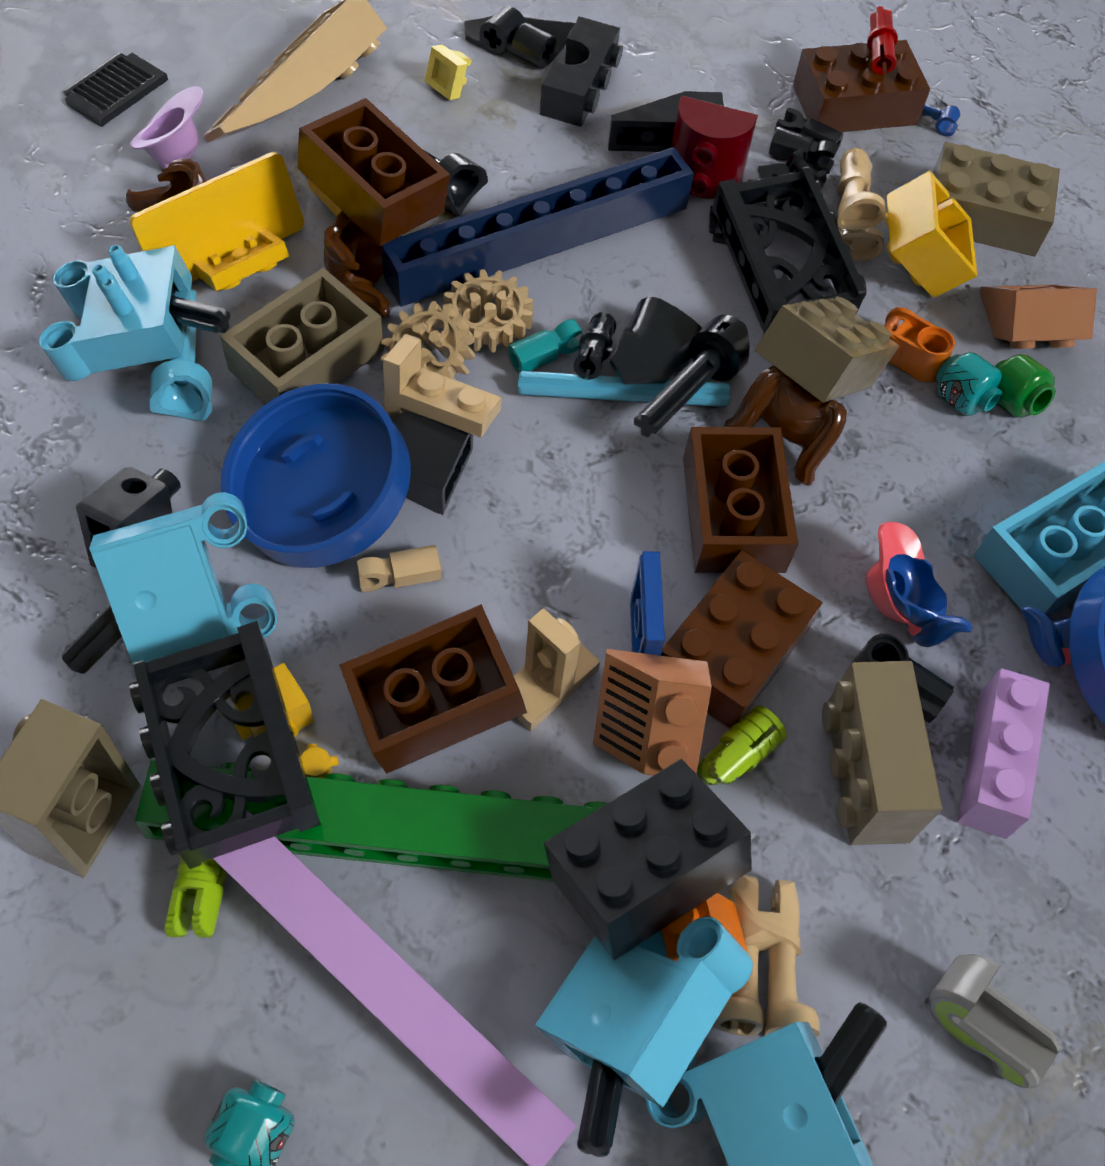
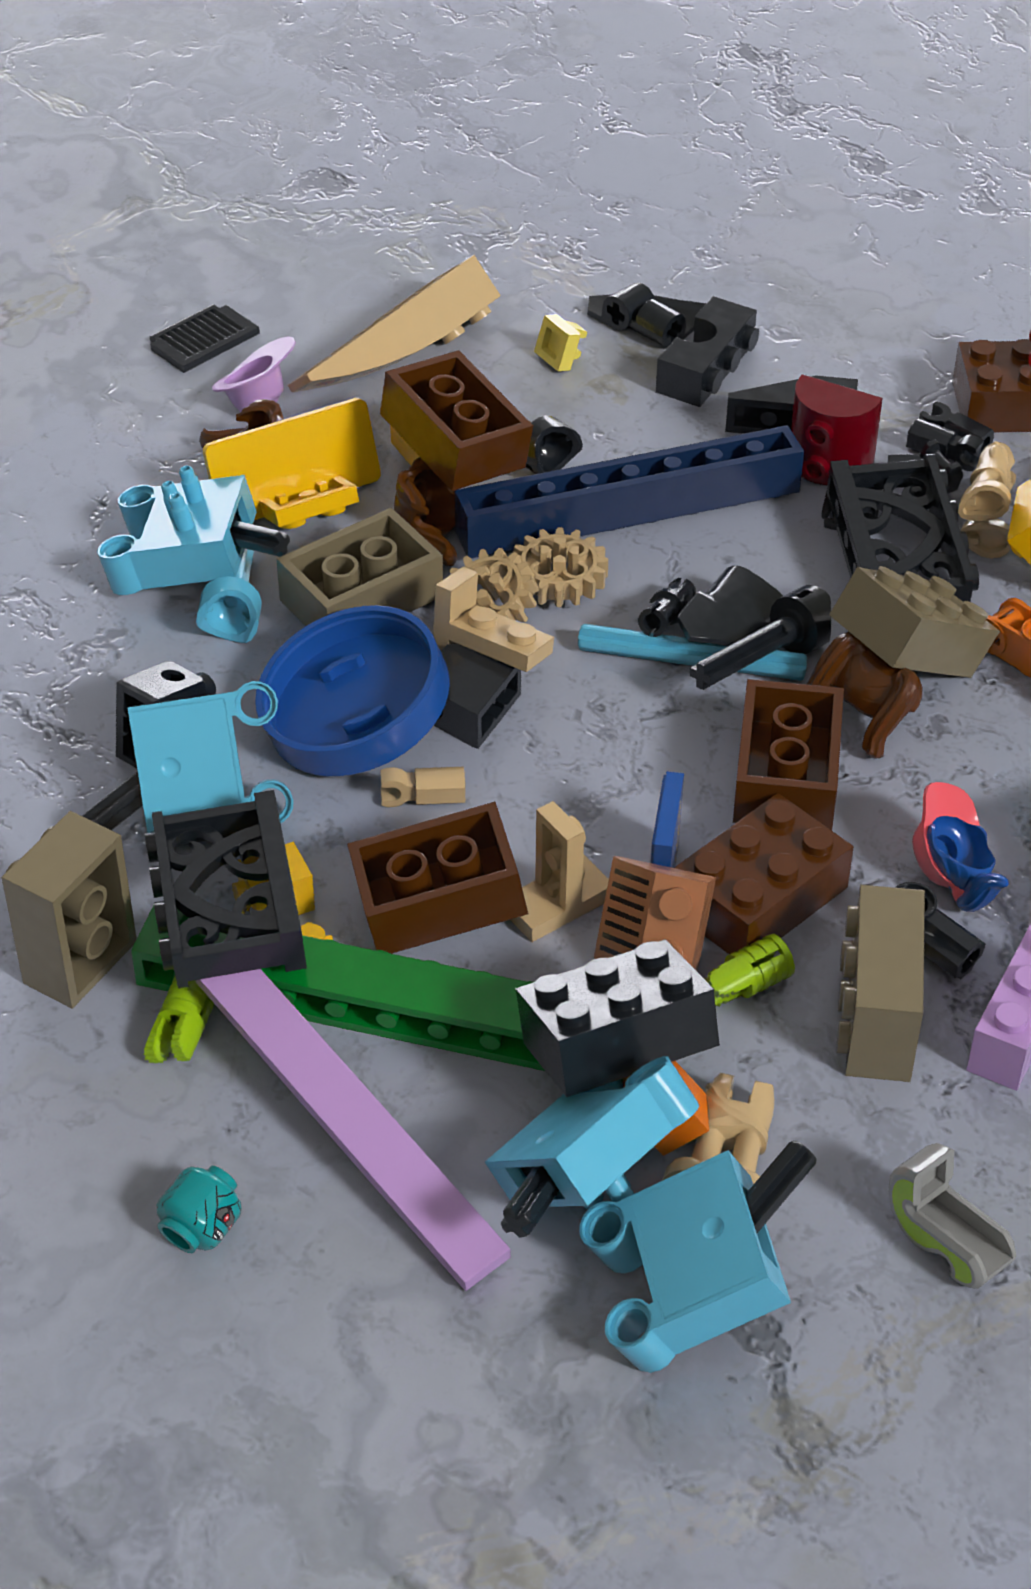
camera: 15 degrees right, 15 degrees down
(544, 346) = (613, 605): teal bar -> none

